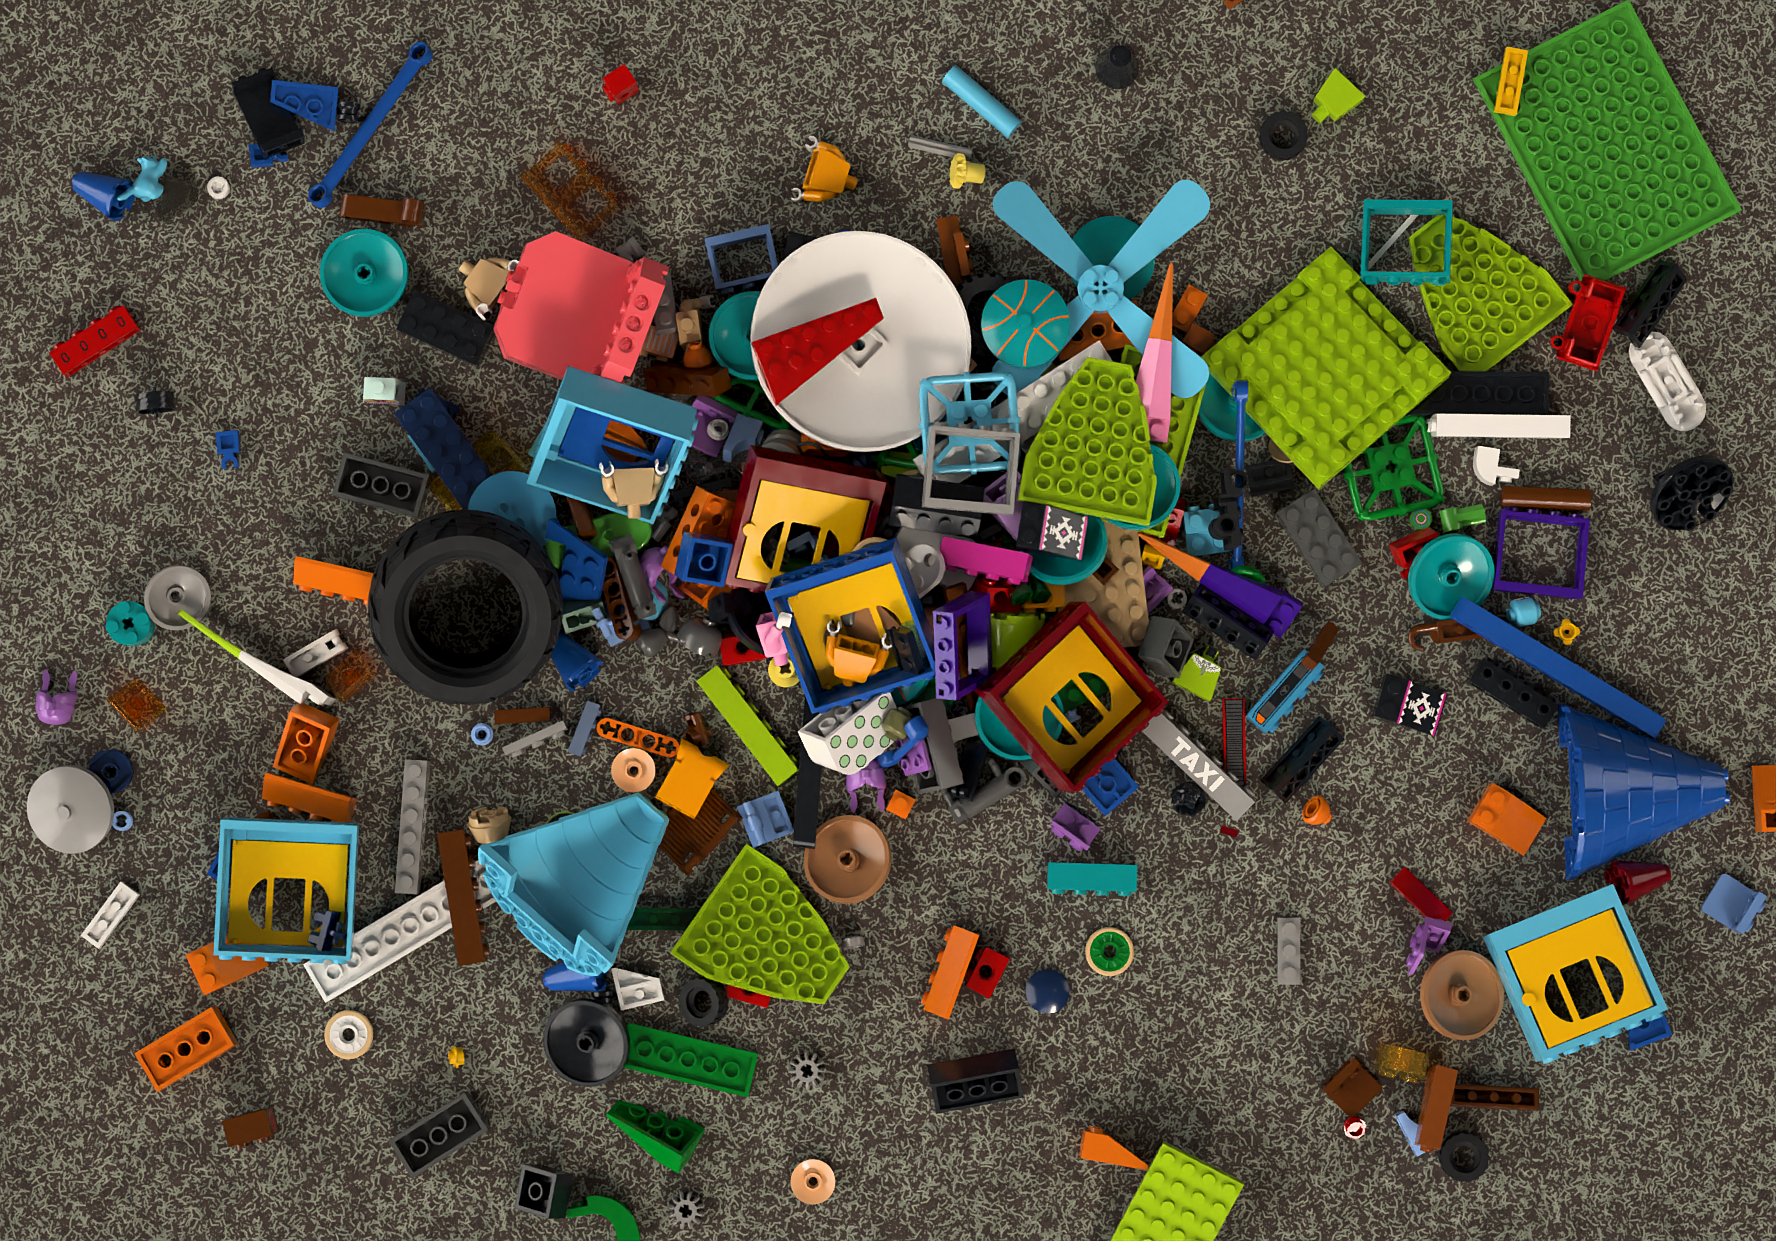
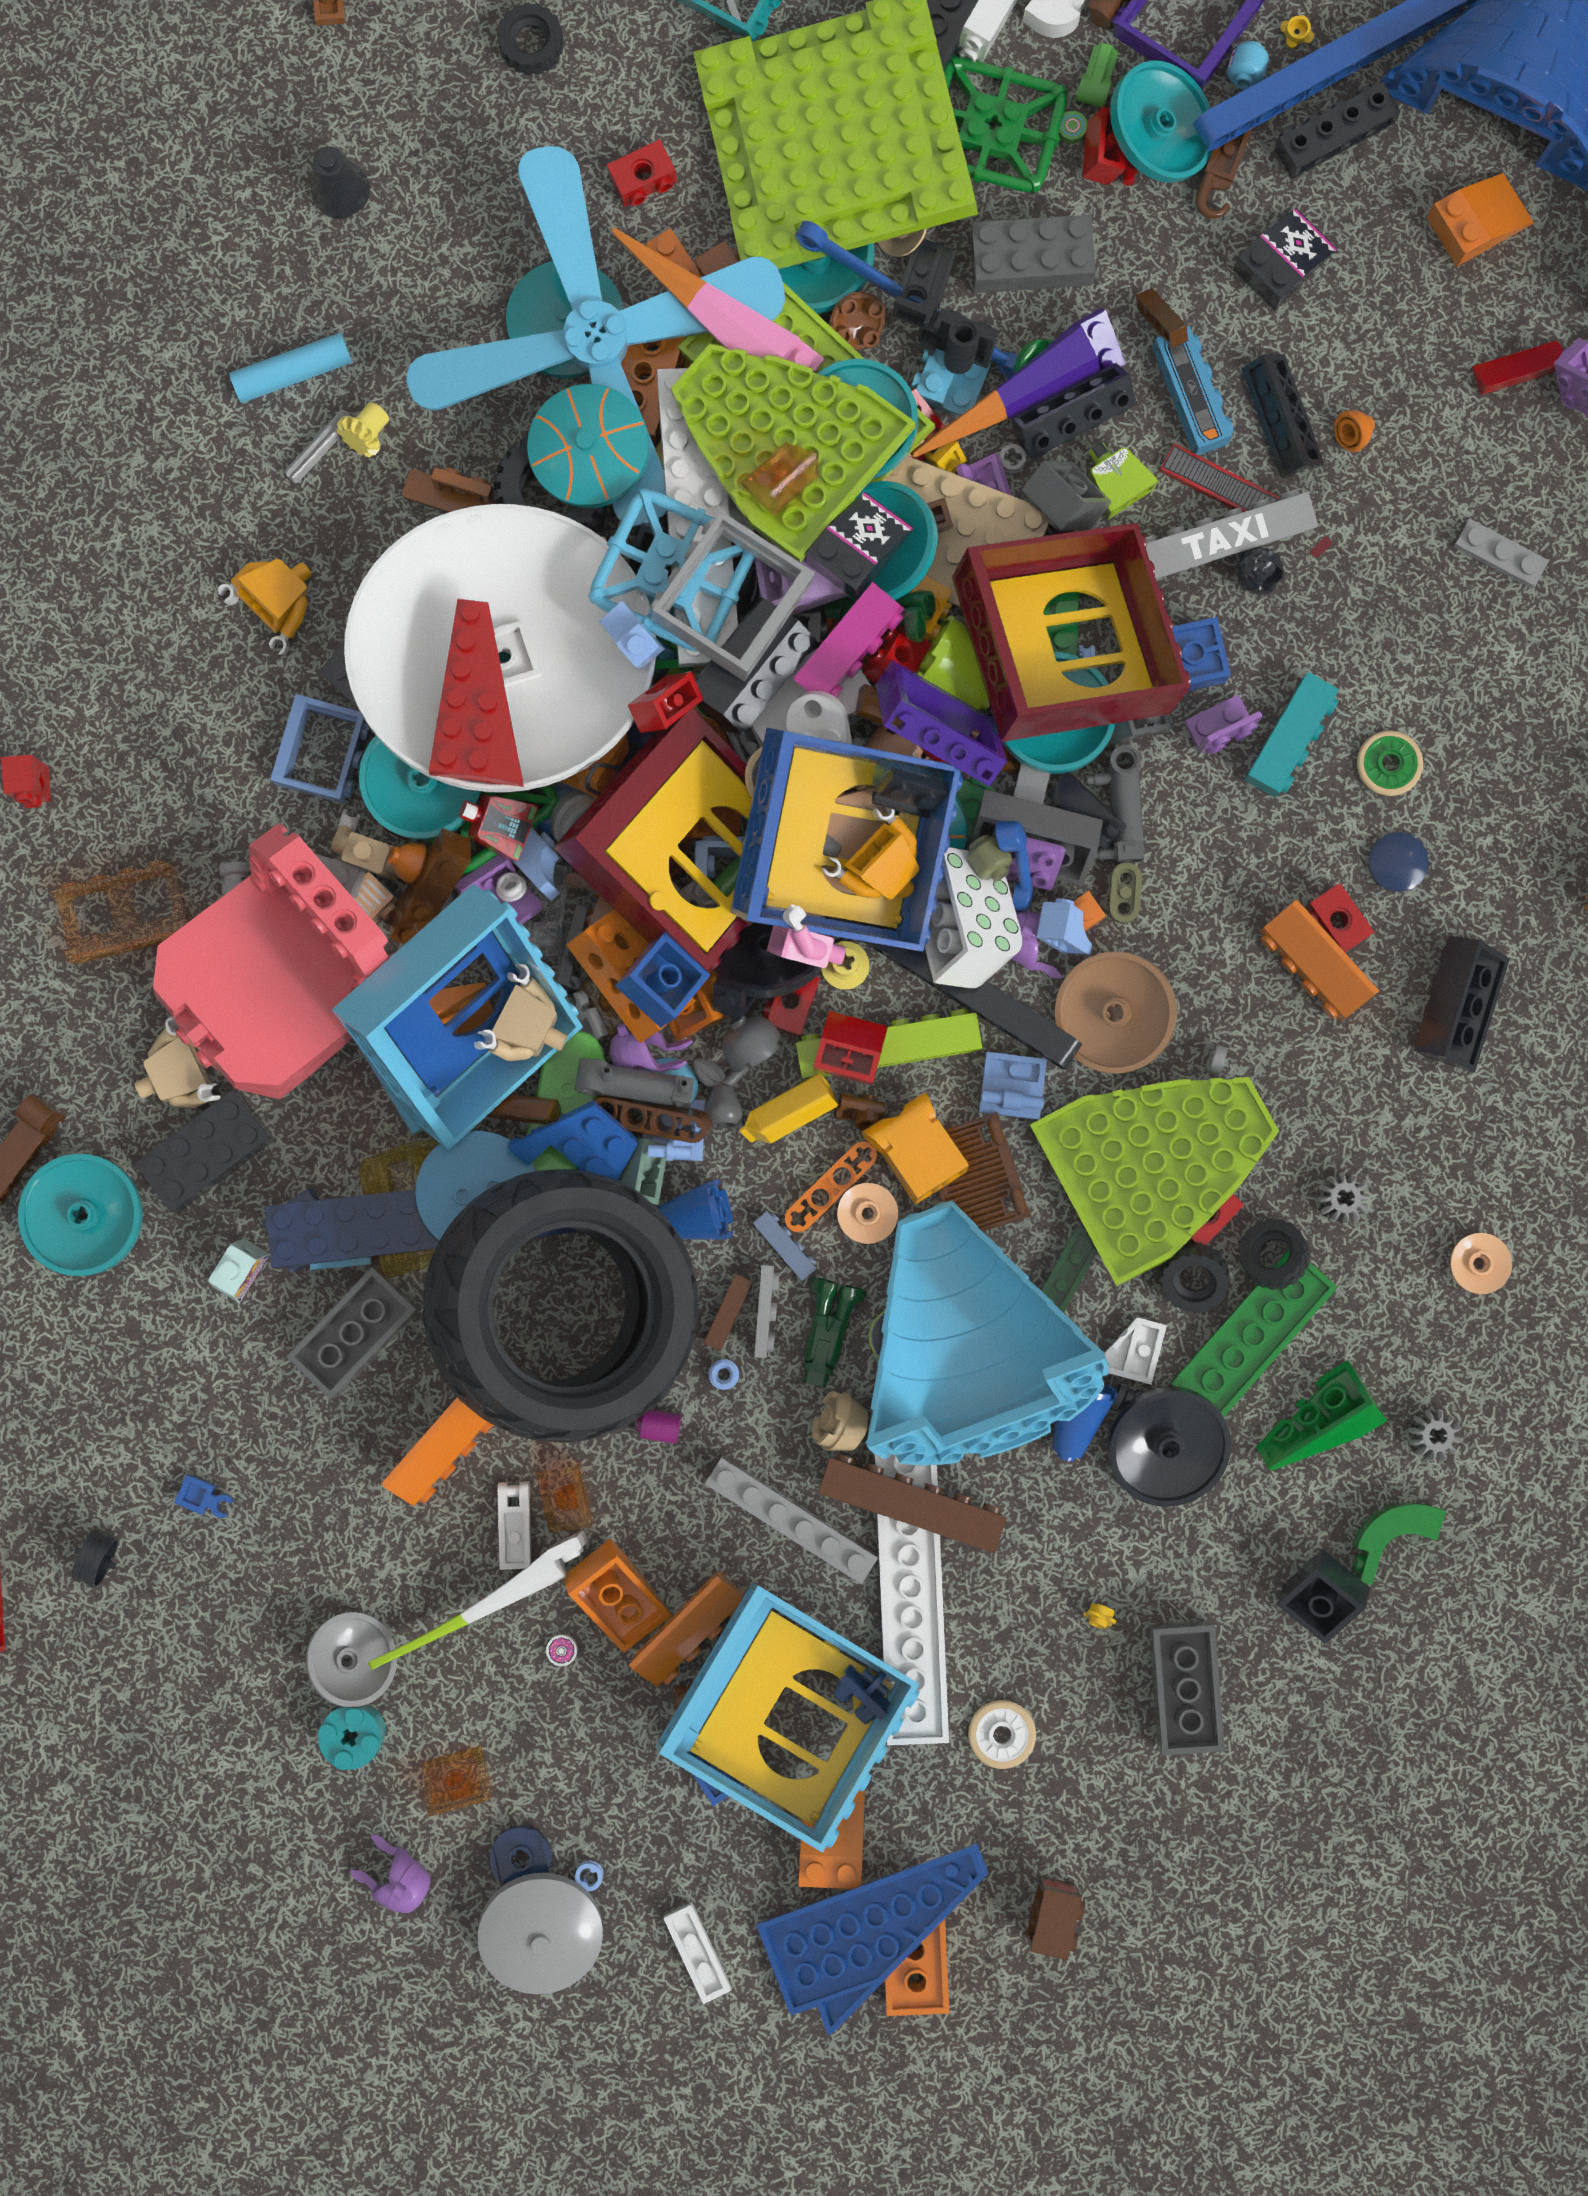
camera: 60 degrees left, 0 degrees up
(169, 1007) = (853, 1941): none -> blue wing
(253, 726) = (561, 1649): none -> tile
(427, 711) = (659, 1426): none -> magenta brick
(544, 785) = (828, 1331): none -> dark green piece
(672, 685) = (790, 1110): none -> yellow piece
(730, 701) = (850, 1048): none -> red slope
(750, 402) = (499, 824): none -> torso
(751, 1028) = (1288, 1272): none -> black tyre
(879, 465) = (665, 702): none -> red brick
(882, 795) = (1063, 927): none -> light blue arch
(910, 420) = (631, 635): none -> light blue arch
(929, 823) = (1125, 893): none -> olive plate
(1064, 458) = (782, 476): none -> clear orange slope
(1210, 449) = (859, 319): none -> dark orange dish
(1228, 245) = (648, 159): none -> red brick

